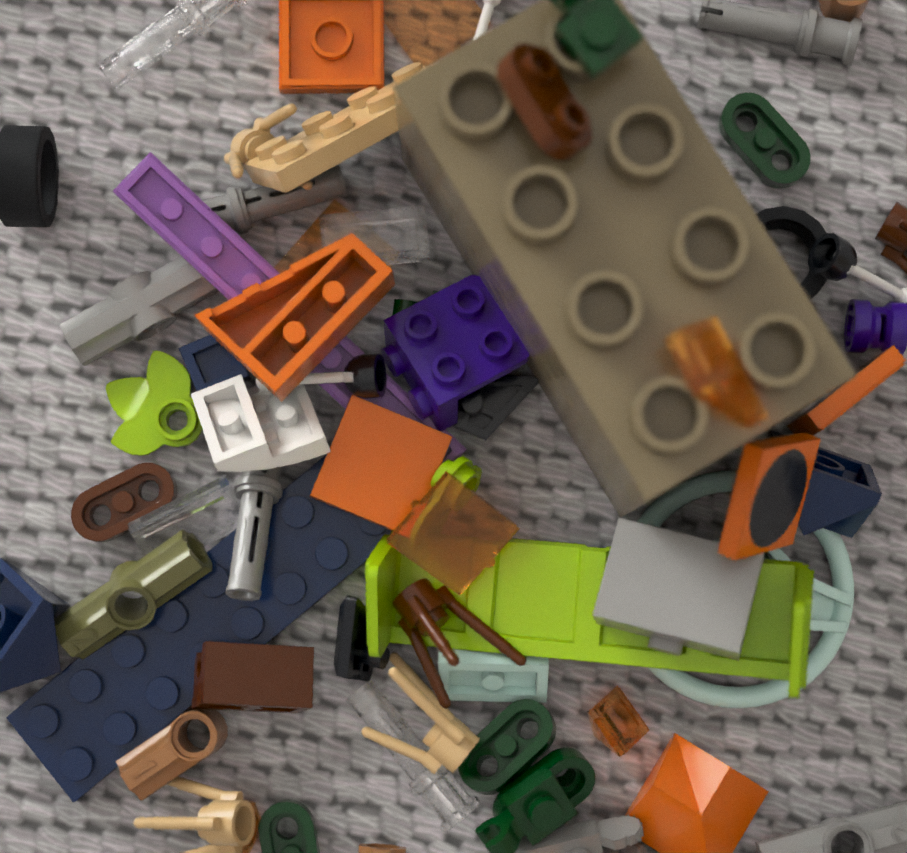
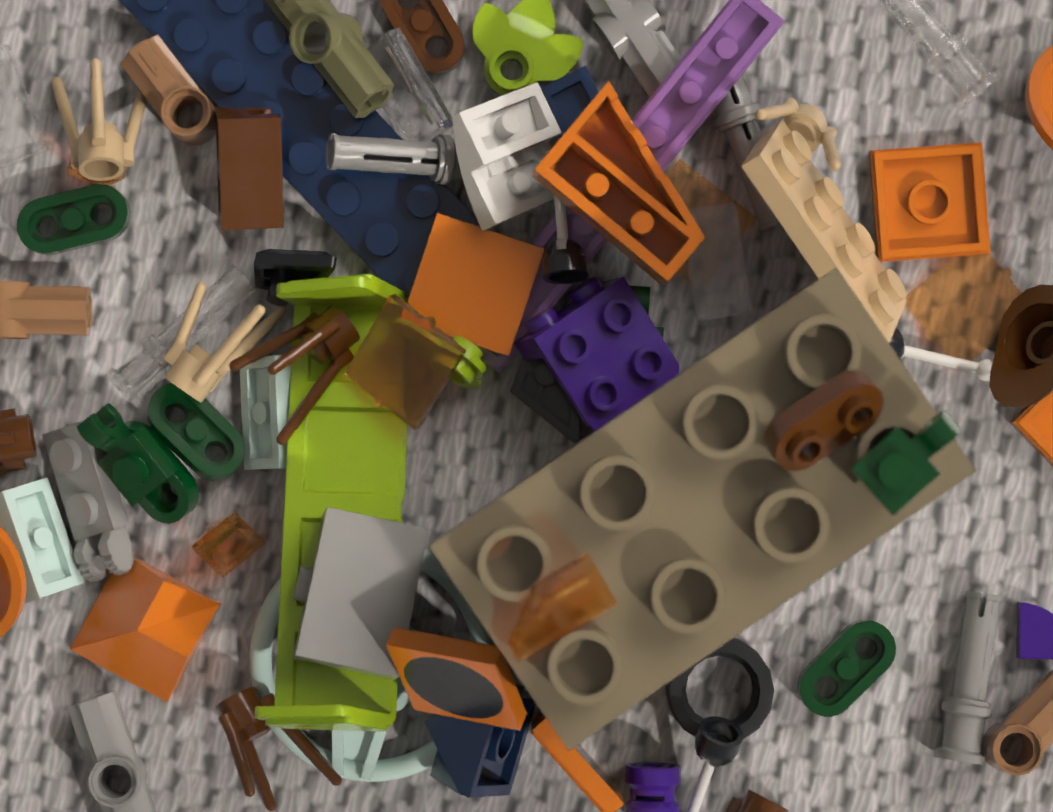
camera: 85 degrees right, 5 degrees up
(793, 716) = (242, 729): none -> reddish brown plant

